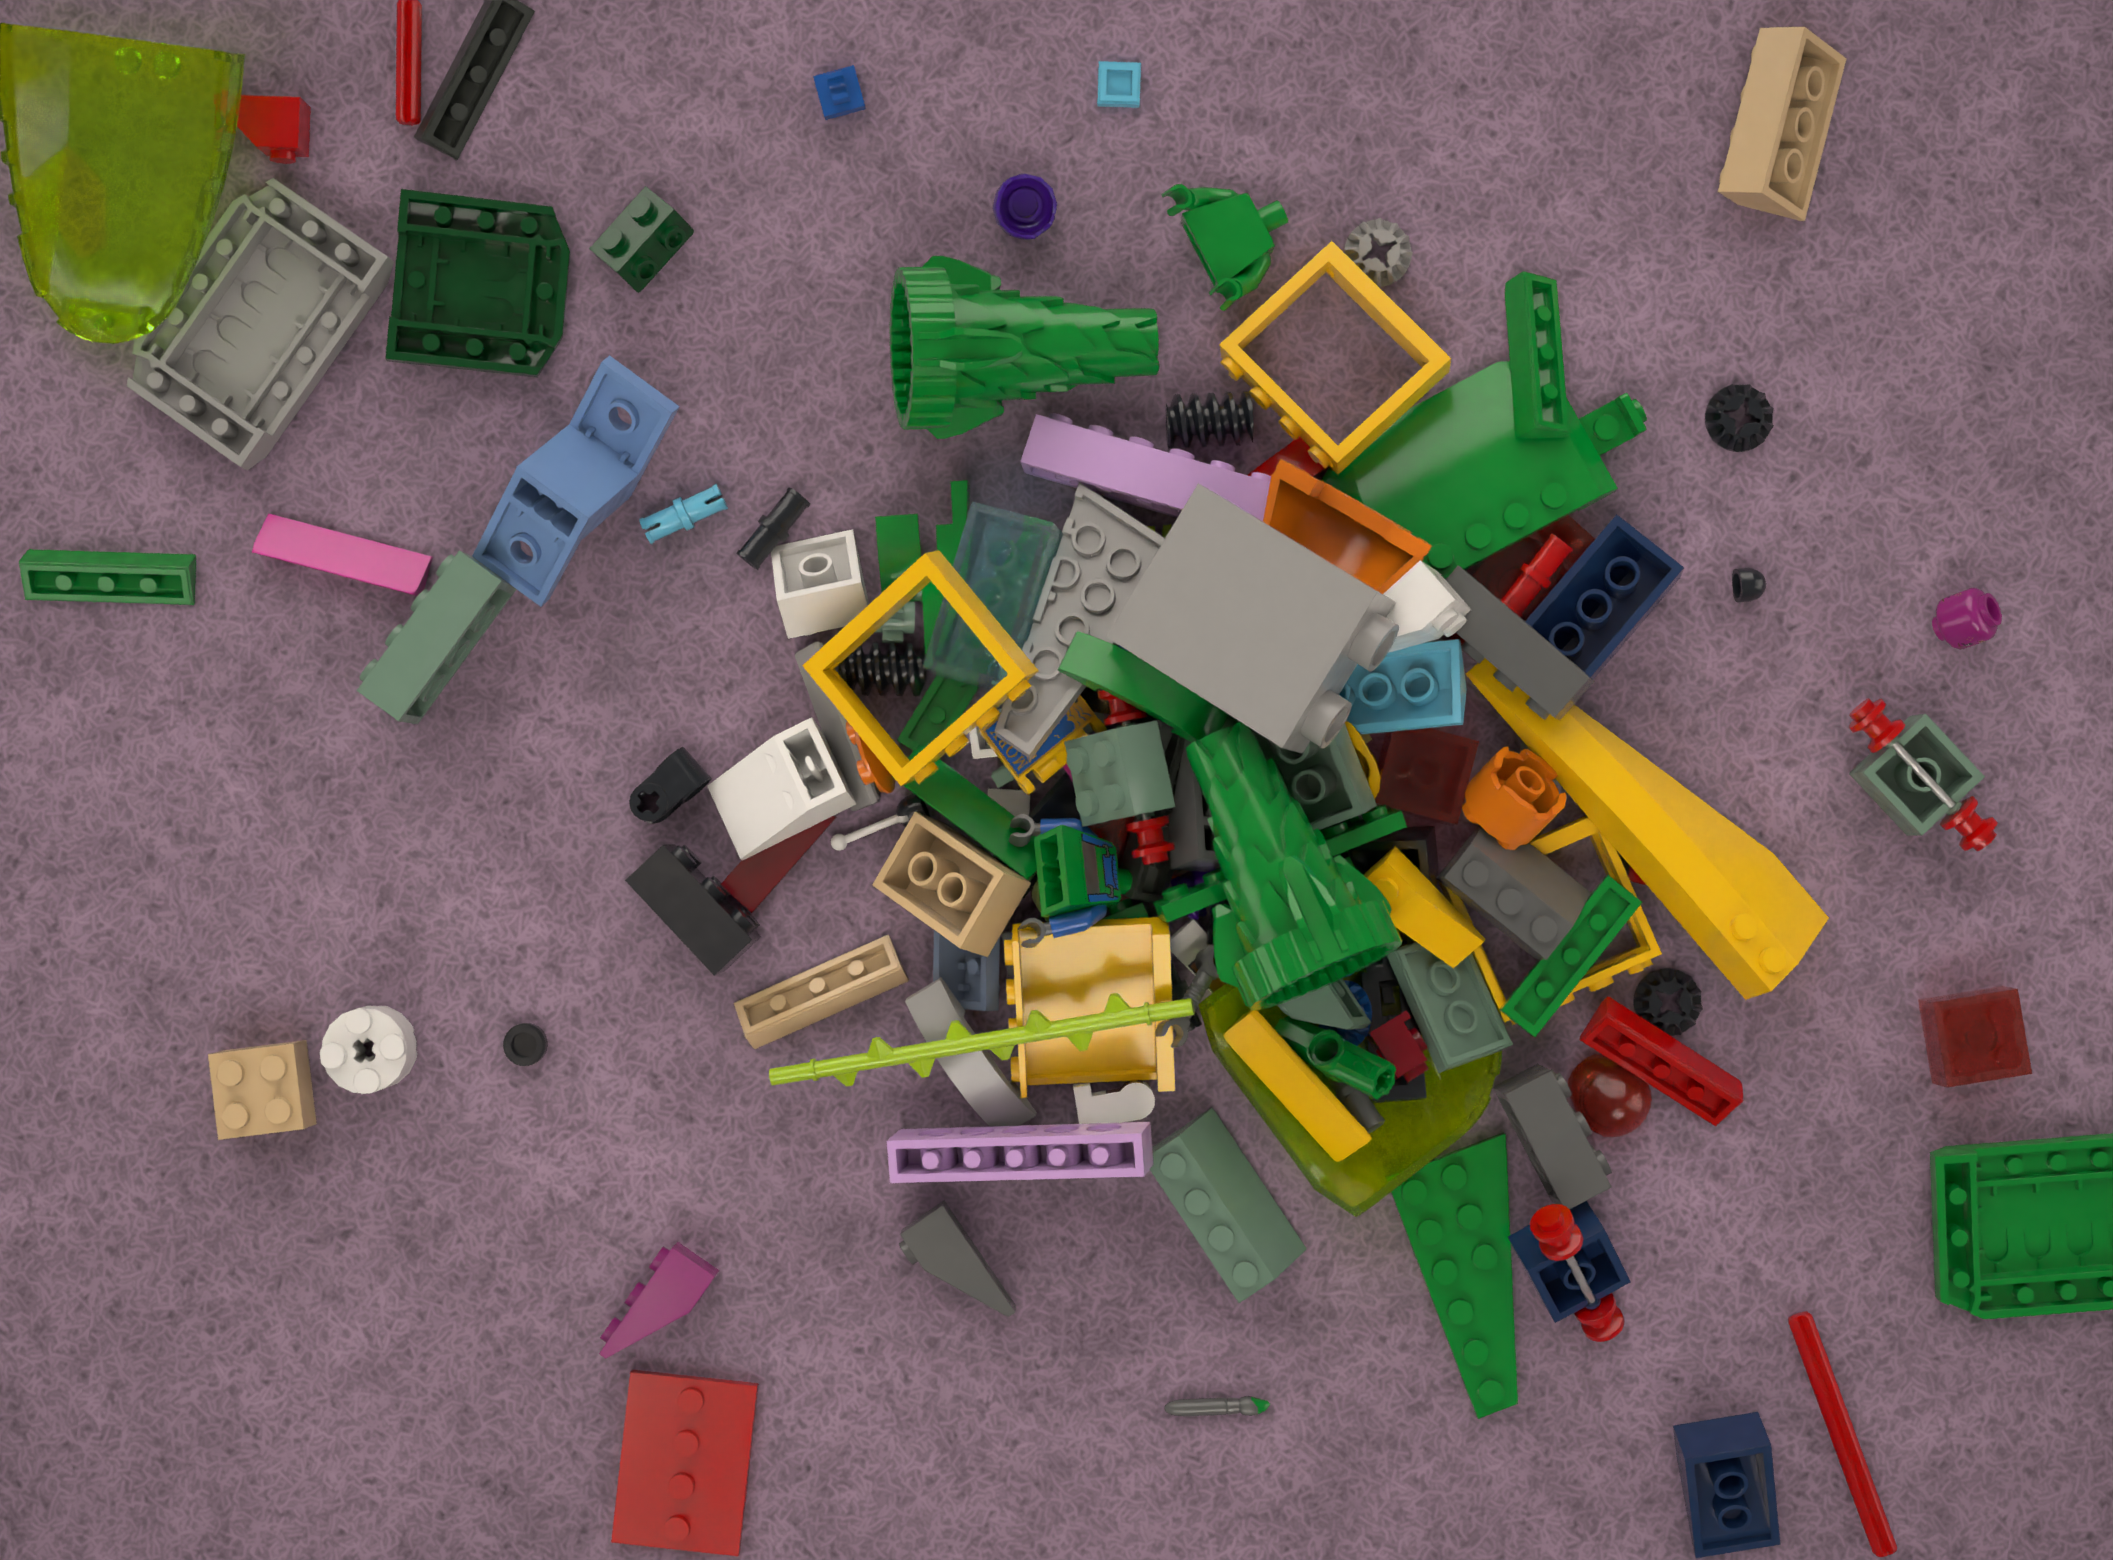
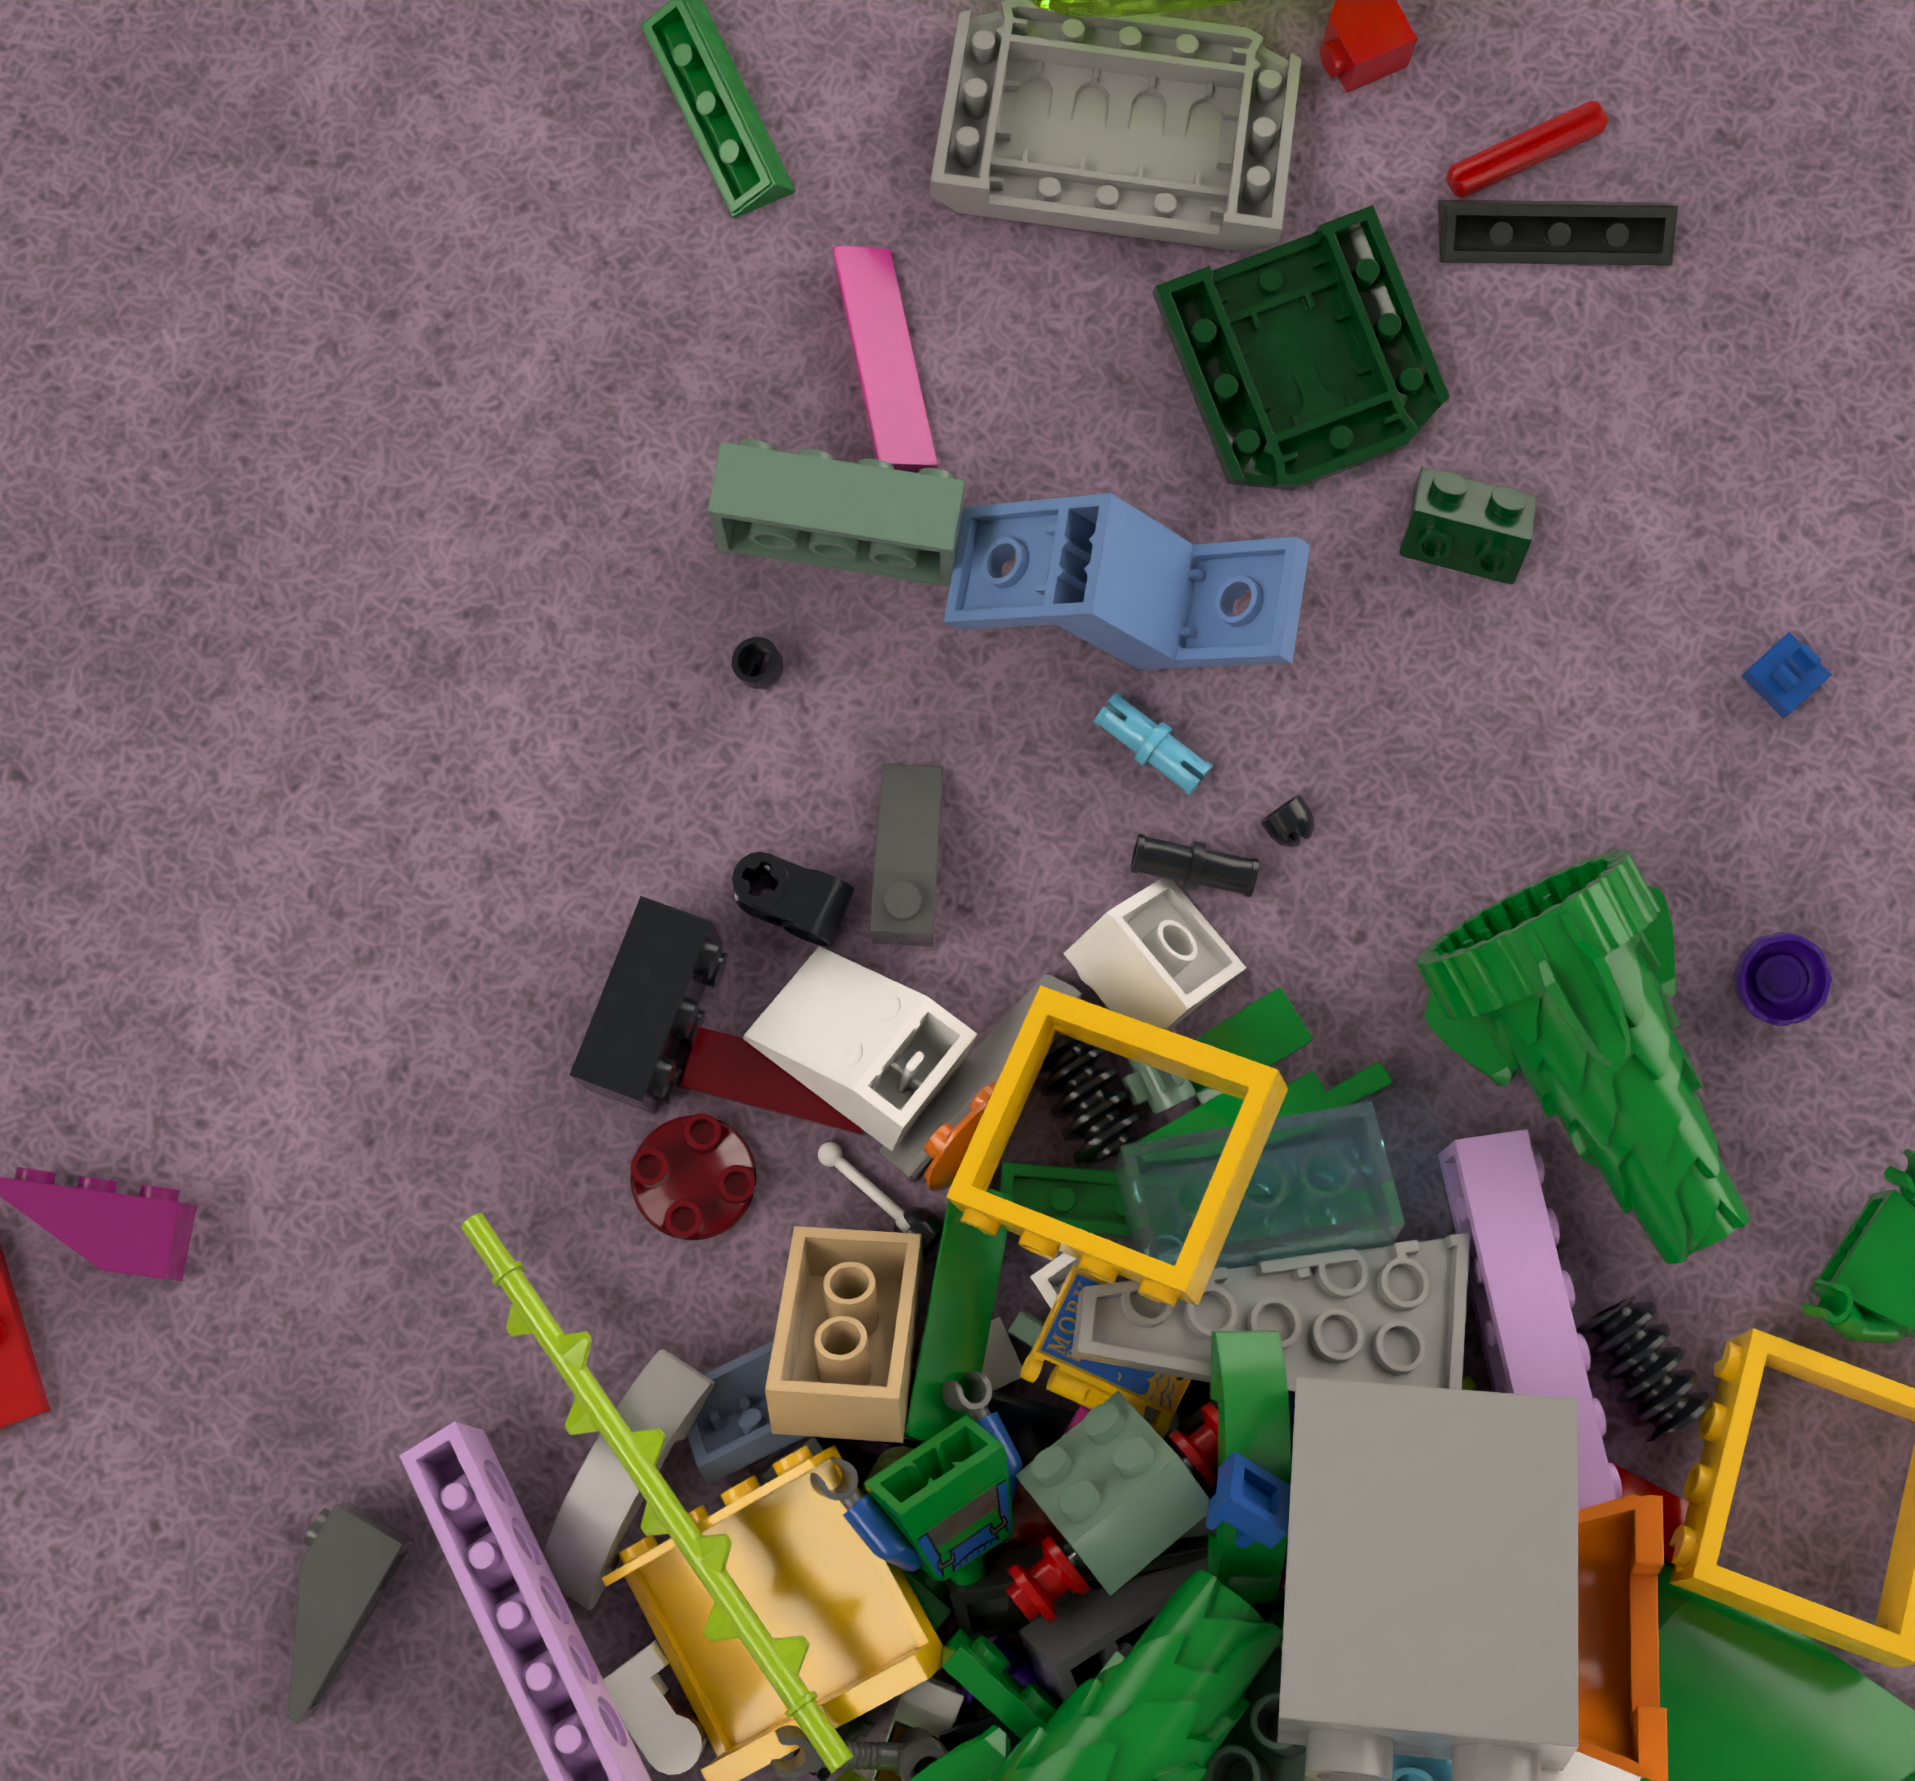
camera: 55 degrees right, 10 degrees down
(262, 1089) = (155, 581): tan brick -> none
(345, 1055) = (249, 659): white brick -> none
(502, 741) = (748, 661): none -> black hinge
(525, 1044) = (369, 880): black tile -> none
(676, 703) = (906, 855): none -> dark grey slope
(776, 454) = (1286, 819): none -> black hinge
(811, 931) = (693, 1177): none -> dark red dish
(820, 992) = (606, 1223): tan slope -> none
(1161, 700) = (1250, 1502): none -> blue tile

